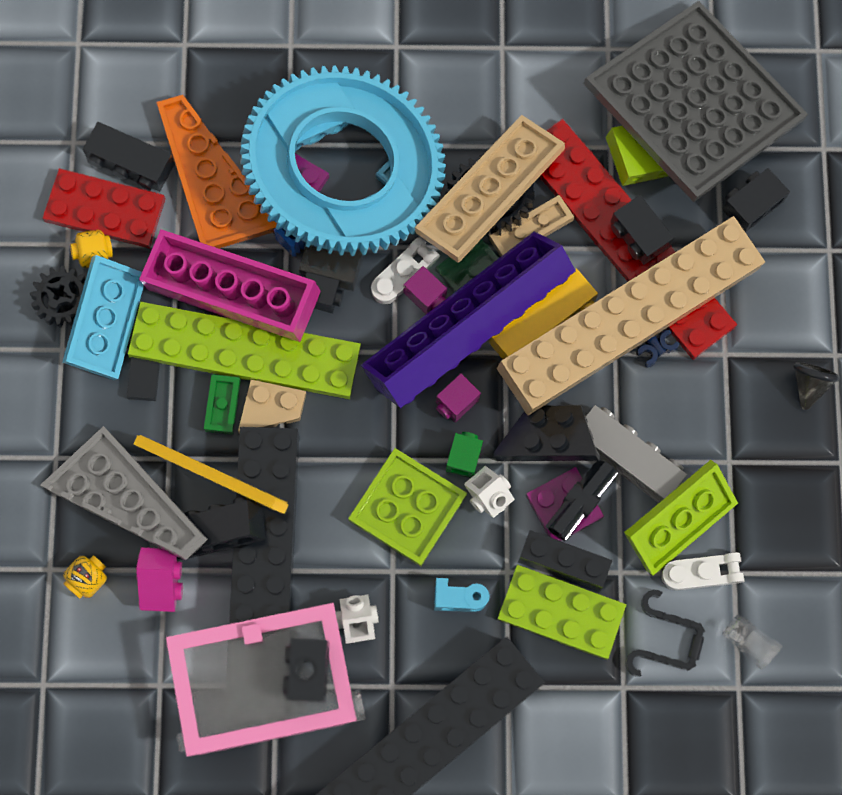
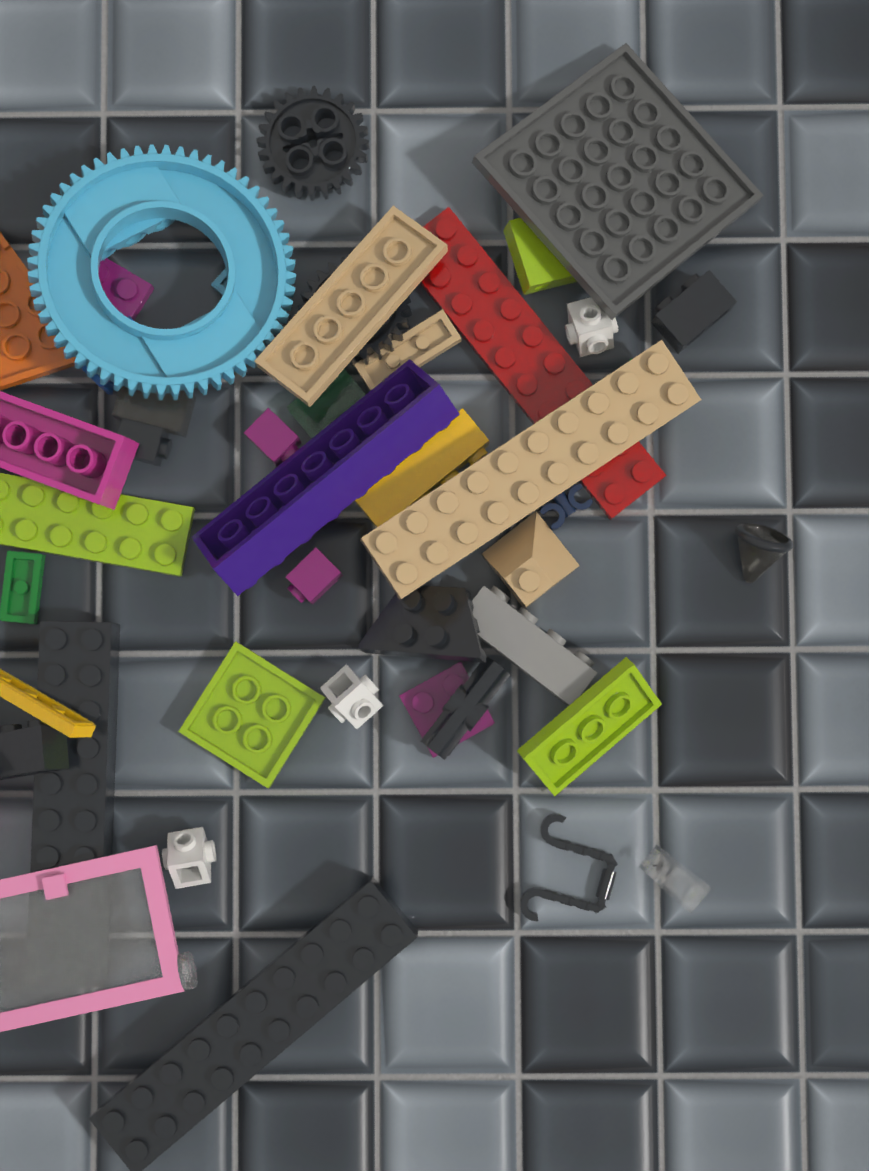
camera: 10 degrees right, 10 degrees up
(271, 405) = (83, 587): tan wing -> none
(314, 688) = (133, 916): black brick -> none
(390, 282) = (228, 428): white plate -> none
(460, 599) = (316, 829): medium azure leg -> none
(463, 91) = (306, 114): none -> black gear
(464, 454) = (322, 647): green brick -> none
(562, 612) = (442, 842): lime plate -> none
(565, 561) = (445, 782): black brick -> none
(629, 389) = (530, 560): none -> tan slope
(641, 230) = (544, 357): black brick -> none
(675, 209) = (589, 327): none -> white brick
(702, 572) = (615, 791): white plate -> none

